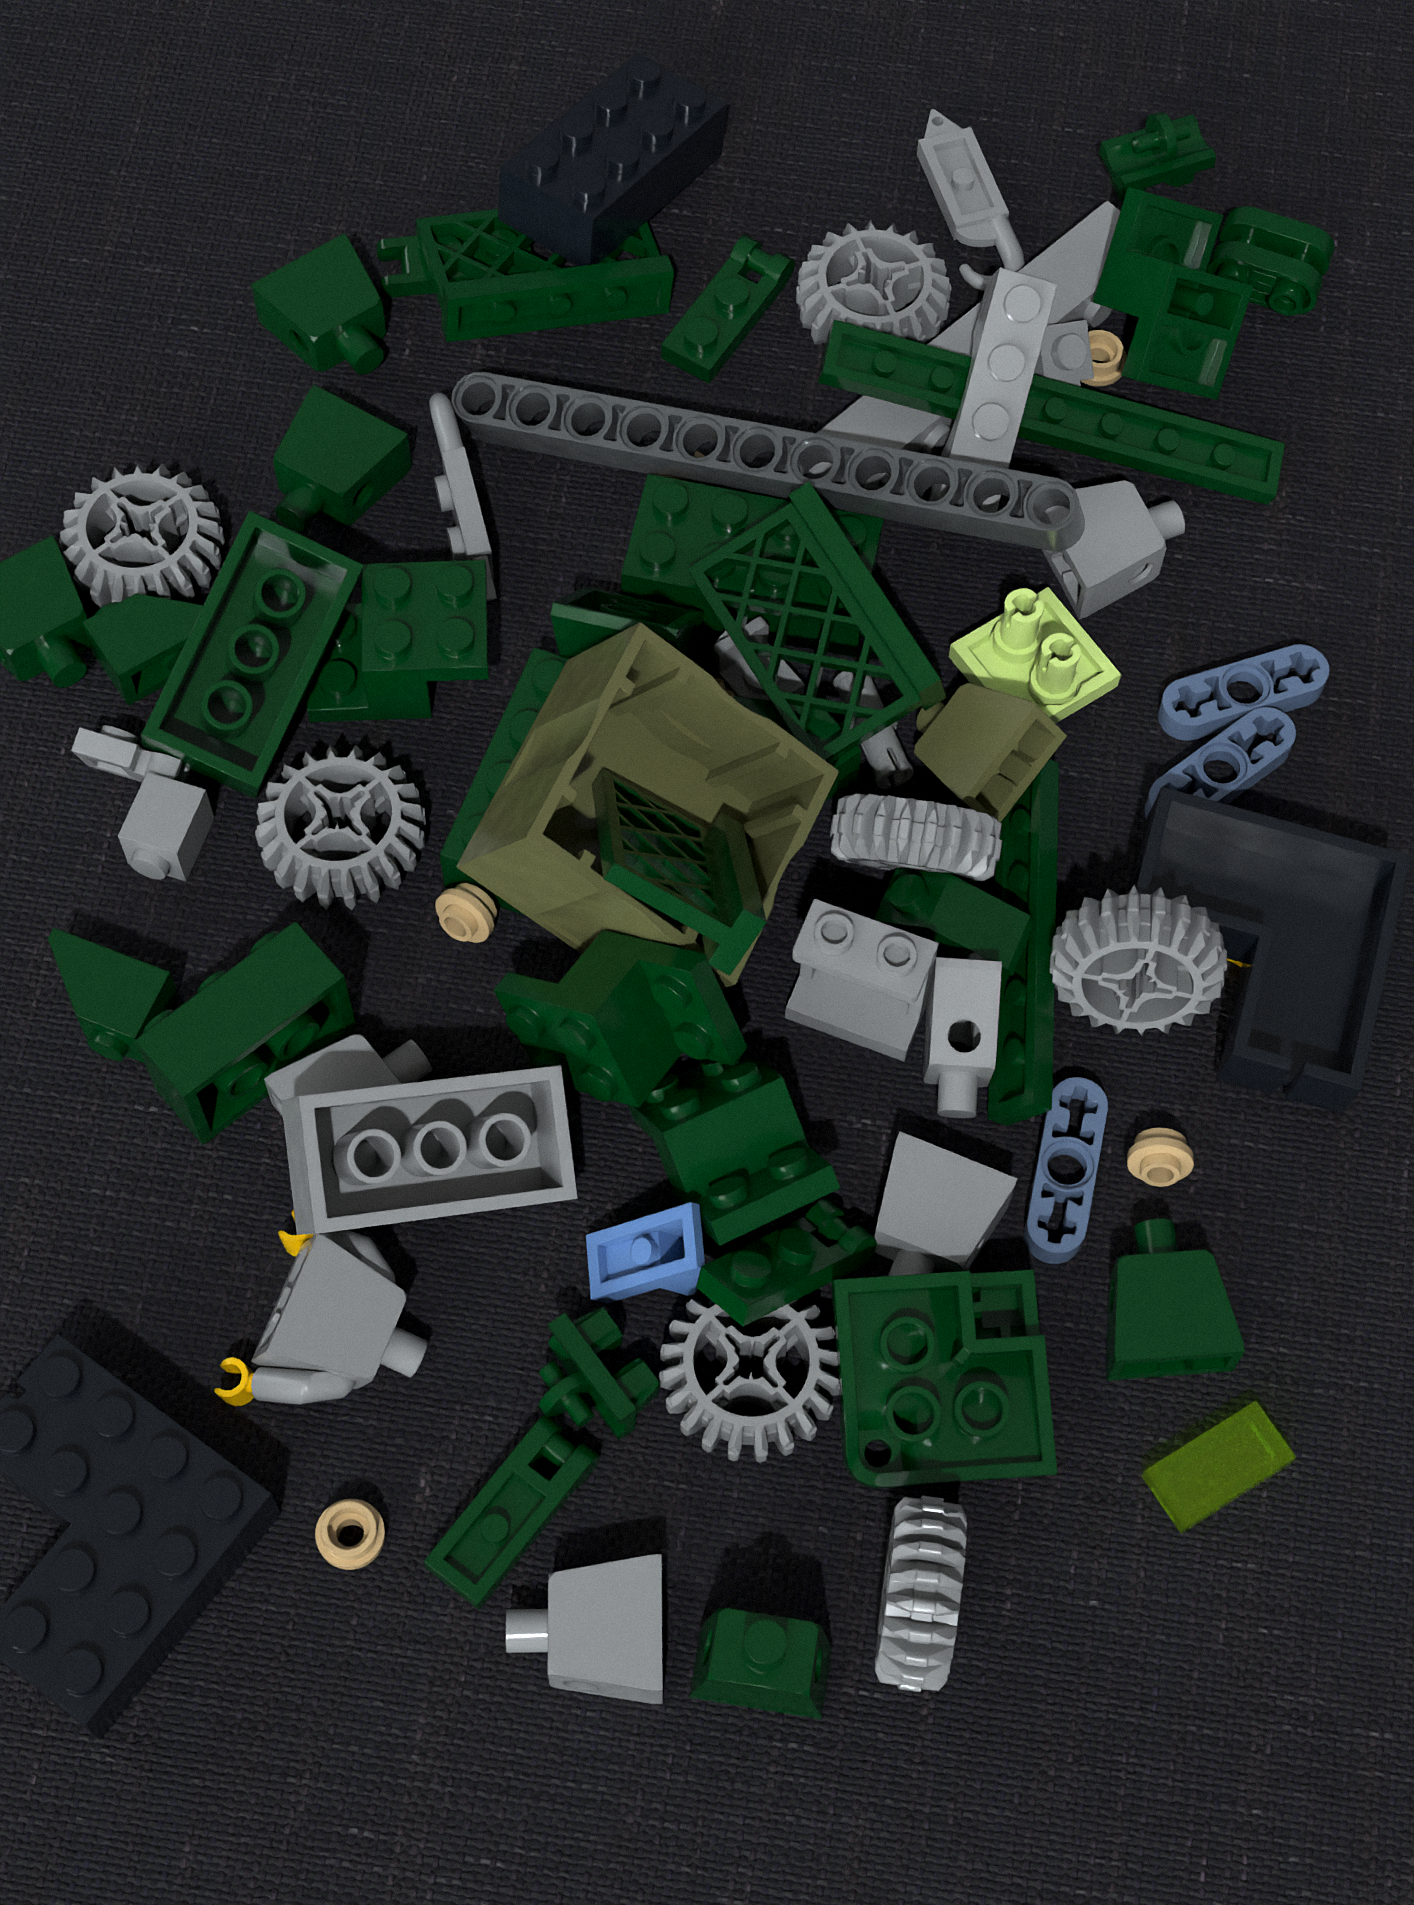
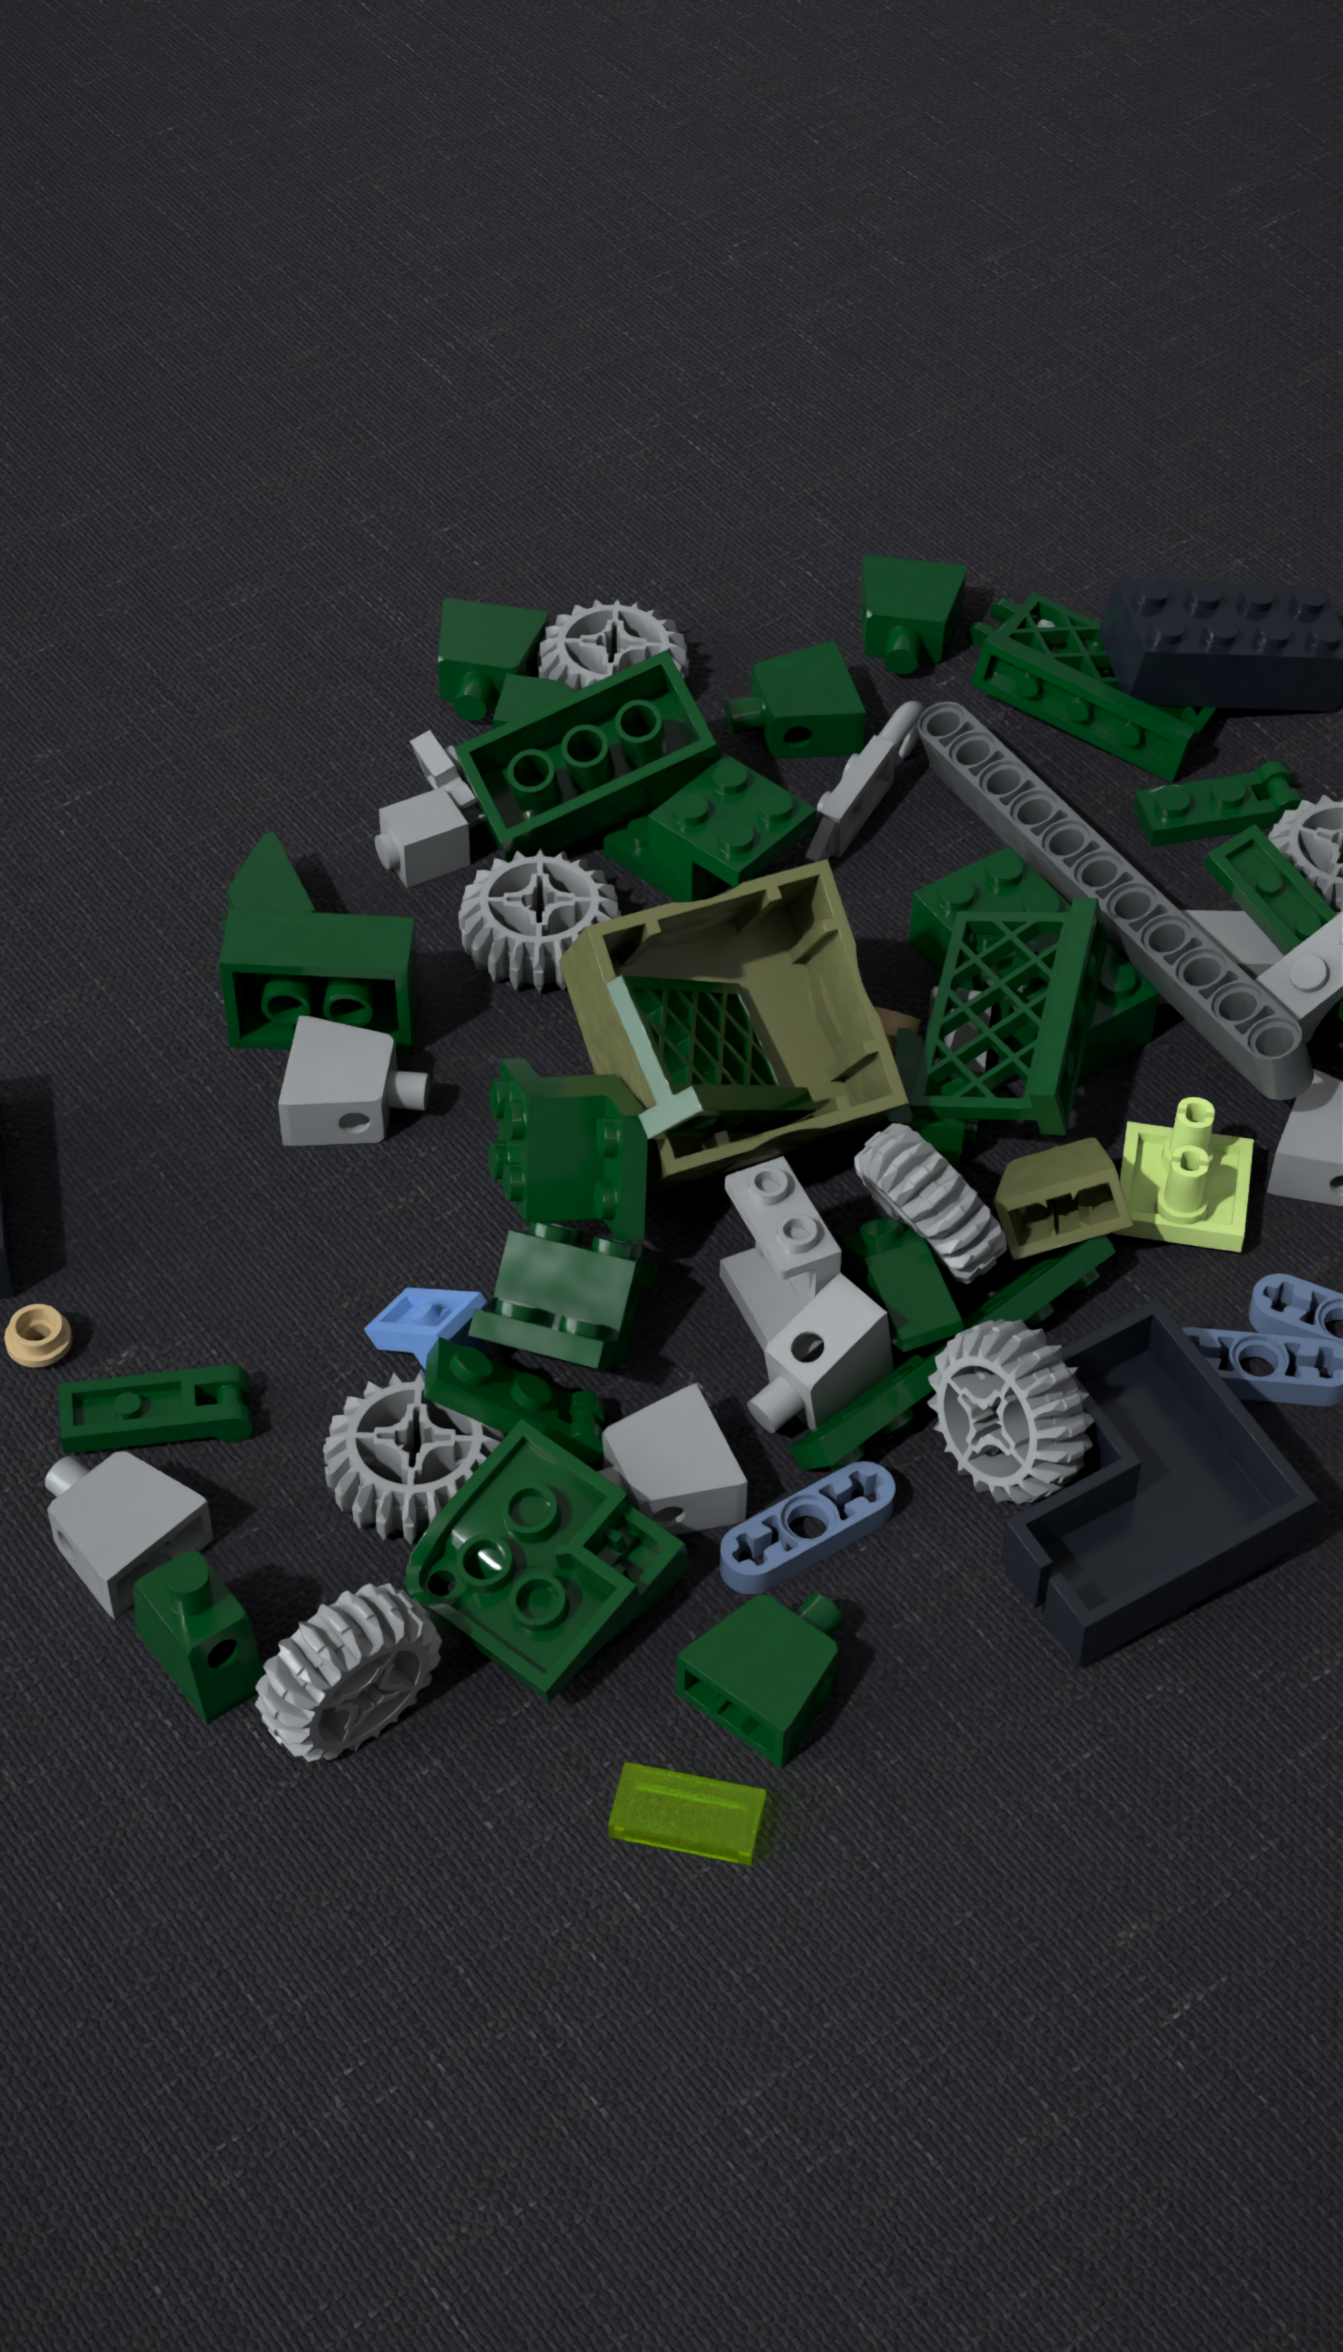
camera: 45 degrees right, 15 degrees down
(328, 1325) = (169, 1194): light grey torso -> none
(428, 1149) = (346, 1126): light grey brick -> none
(466, 913) = (561, 1034): tan plate -> none
(597, 615) = (892, 951): dark green slope -> none
(613, 1396) = (296, 1370): dark green hips -> none
(883, 749) = (1001, 1144): light grey pin -> none
(1160, 1157) = (887, 1571): tan plate -> none

